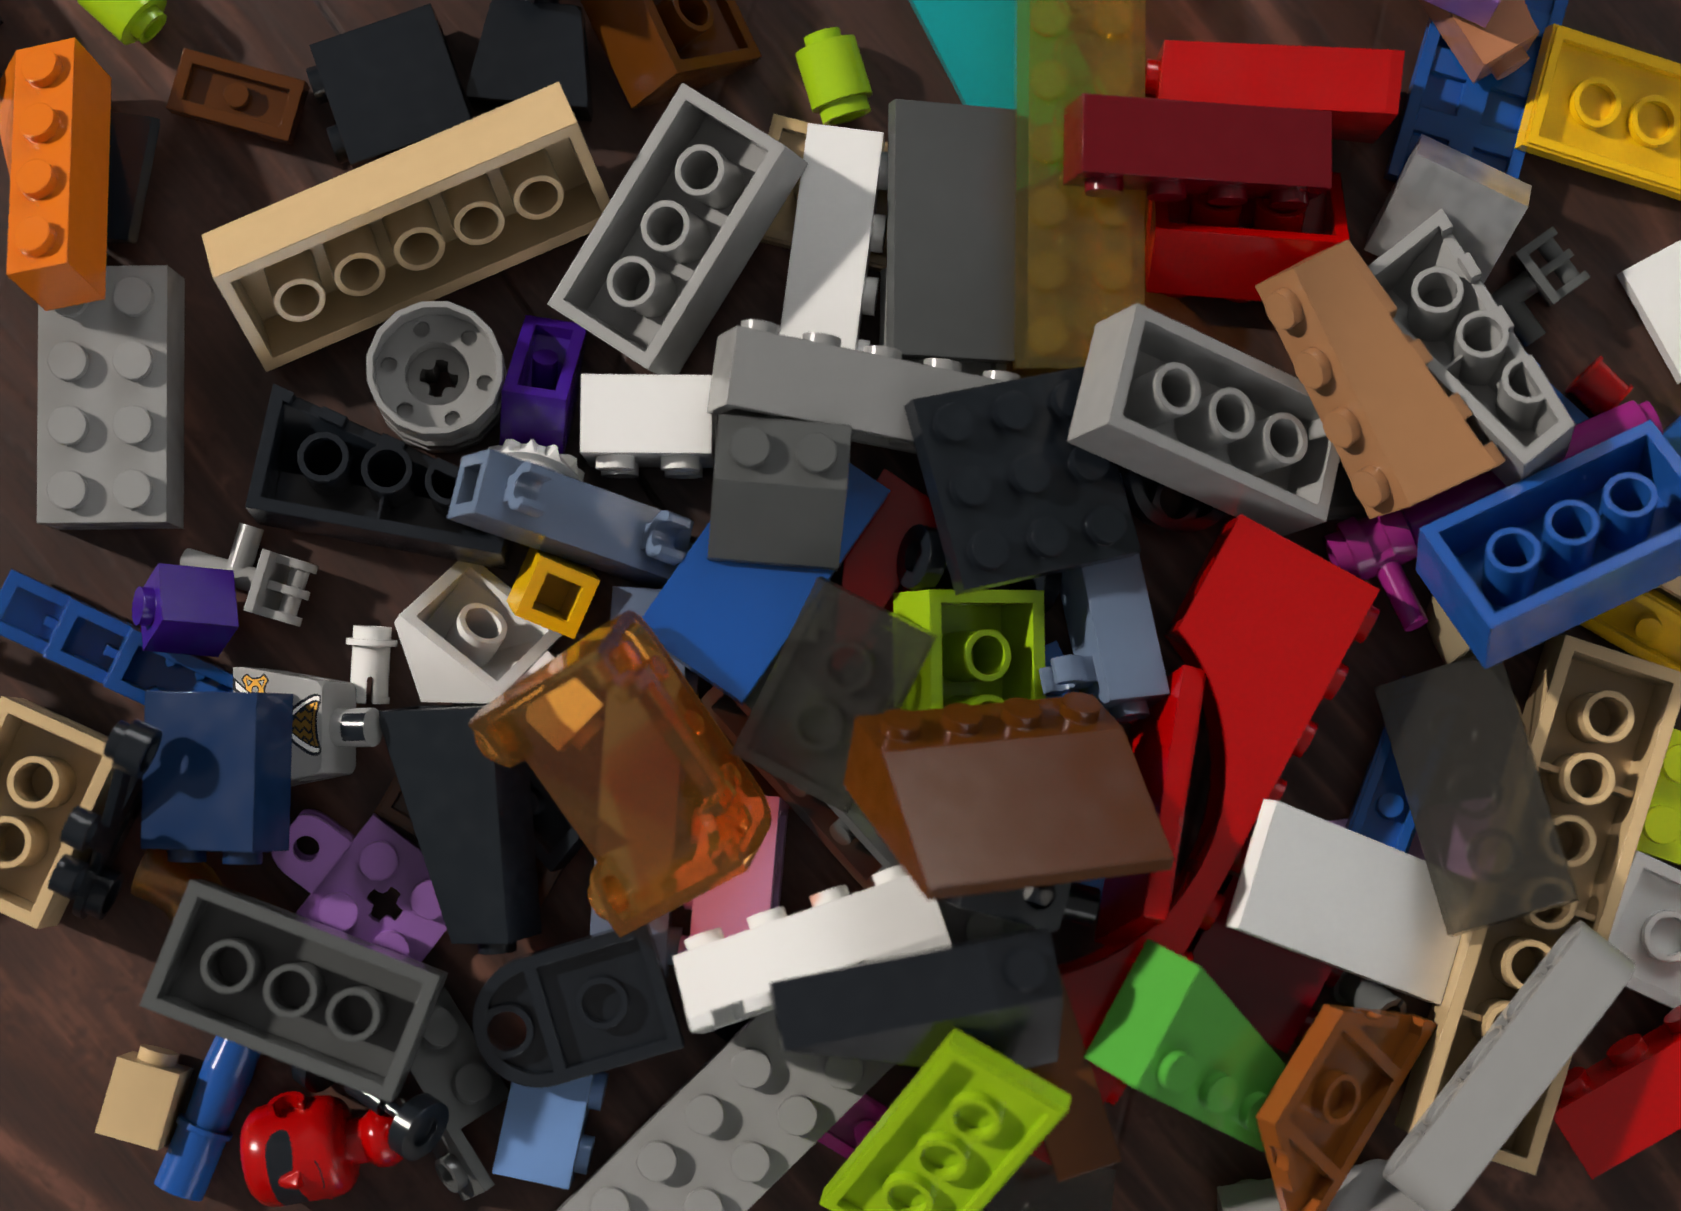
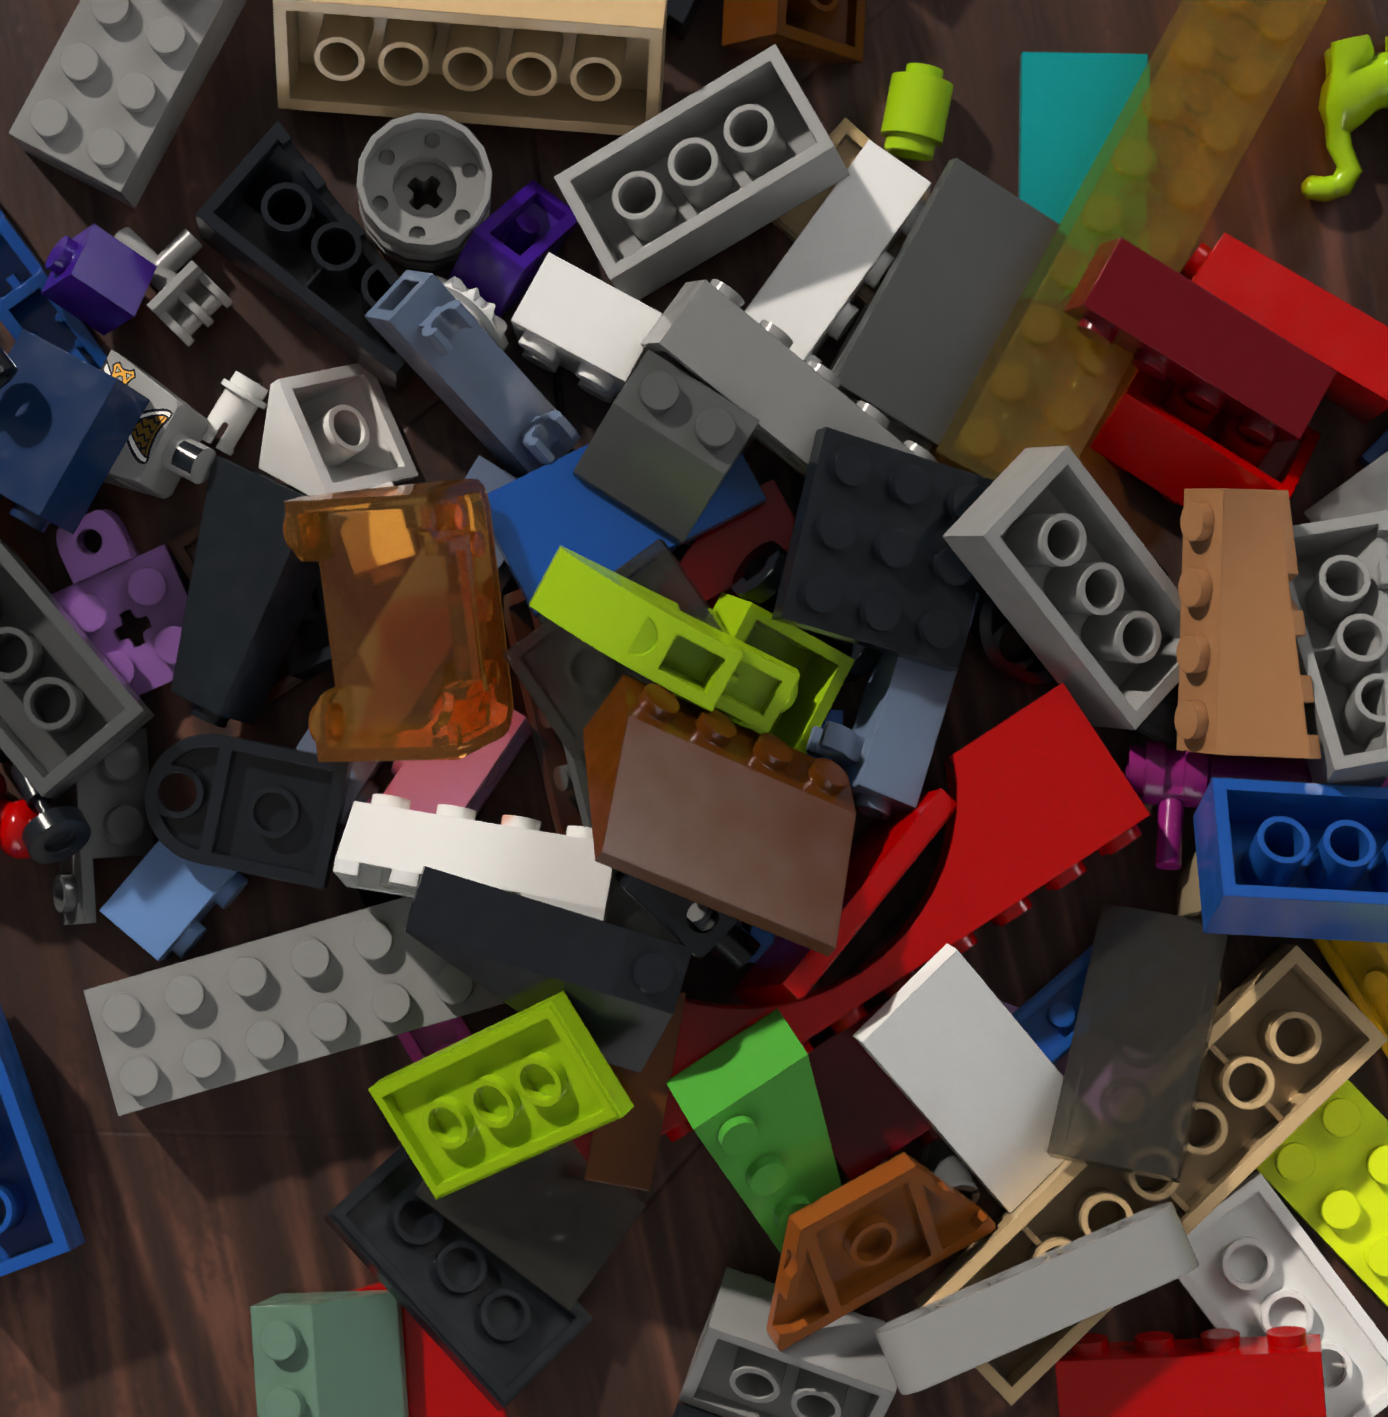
camera: 35 degrees right, 0 degrees up
(553, 592) = (424, 433): yellow brick -> none
(872, 668) = (662, 641): none -> lime slope

